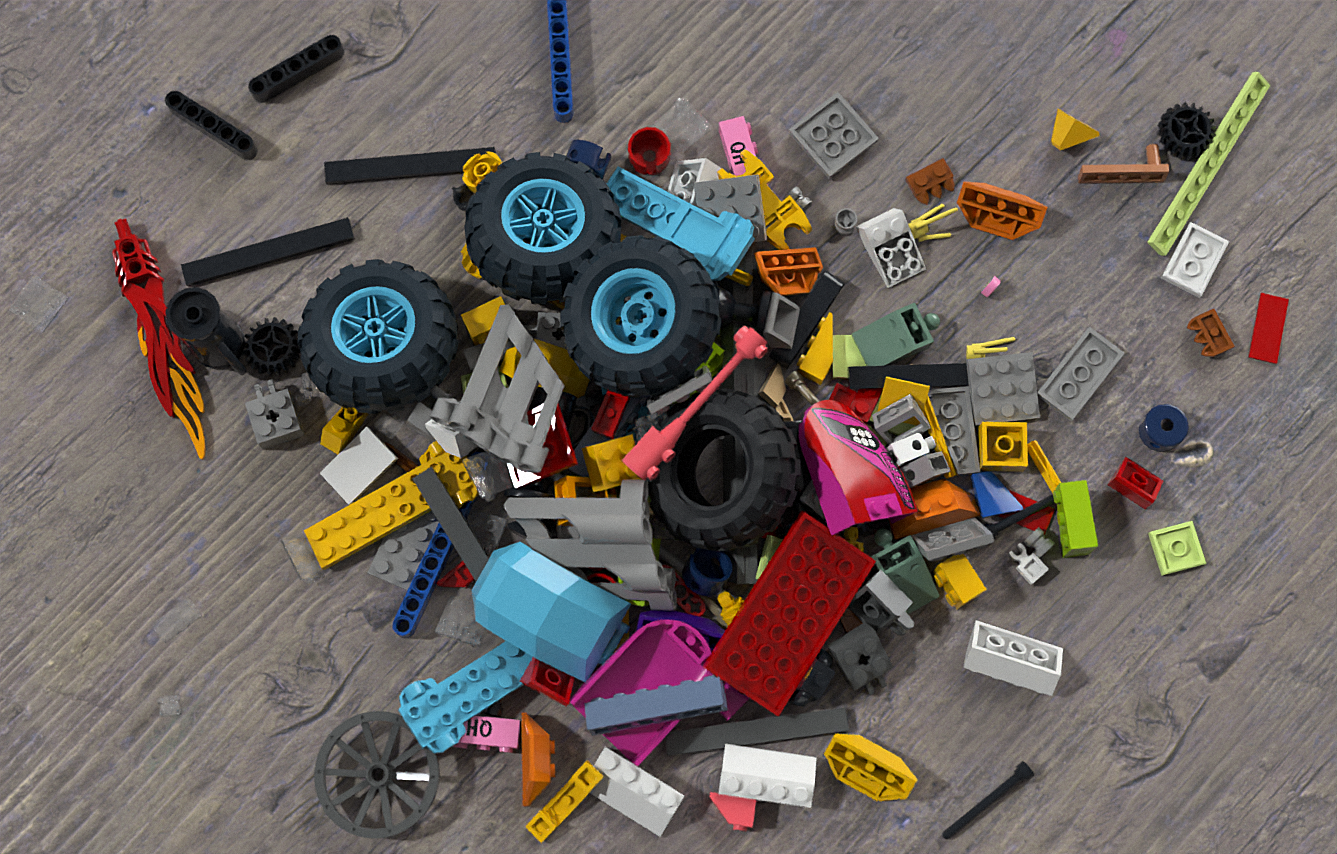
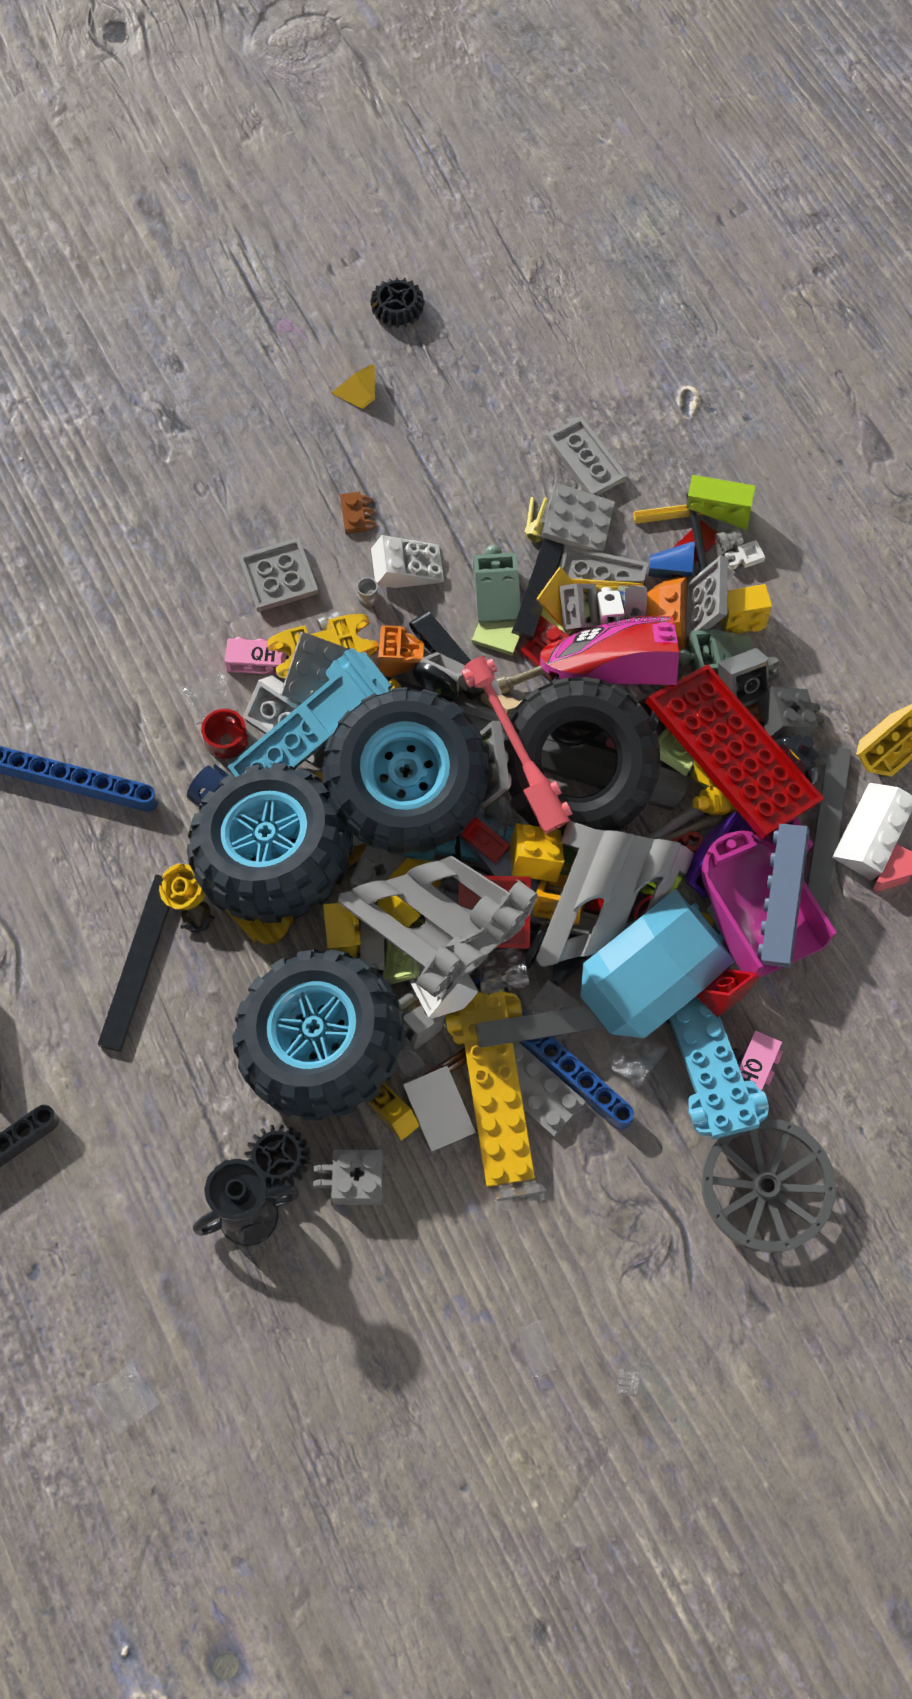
camera: 70 degrees left, 10 degrees down
(153, 349) = (232, 1282): red piece -> none
(267, 251) = (169, 1134): black tile -> none
(308, 388) = (337, 1135): clear arm -> none
(457, 578) = (586, 1046): red tile -> none
(535, 759) = (798, 1032): orange wedge -> none
(564, 801) = (844, 1017): yellow slope -> none
(635, 792) = (853, 953): white slope -> none
(702, 563) = (671, 816): dark blue piece -> none
(819, 358) = (477, 646): yellow slope -> none
(919, 226) = (399, 531): light yellow plant -> none
(991, 286) = (478, 497): bright pink tile -> none
(999, 210) = (412, 463): orange wedge -> none
(1002, 446) = (632, 534): yellow brick -> none
(1014, 658) = (827, 594): white slope -> none
(1131, 173) = (423, 343): nougat piece -> none
(1136, 483) = (702, 450): red slope -> none
(1158, 439) = (660, 418): dark blue piece -> none
(1177, 548) = (769, 440): yellowish green tile -> none
(1195, 259) = (515, 339): white tile -> none
(1208, 164) = (435, 297): yellowish green plate -> none
(1211, 333) = (588, 348): dark orange plate -> none
(1268, 328) = (598, 308): red piece -> none

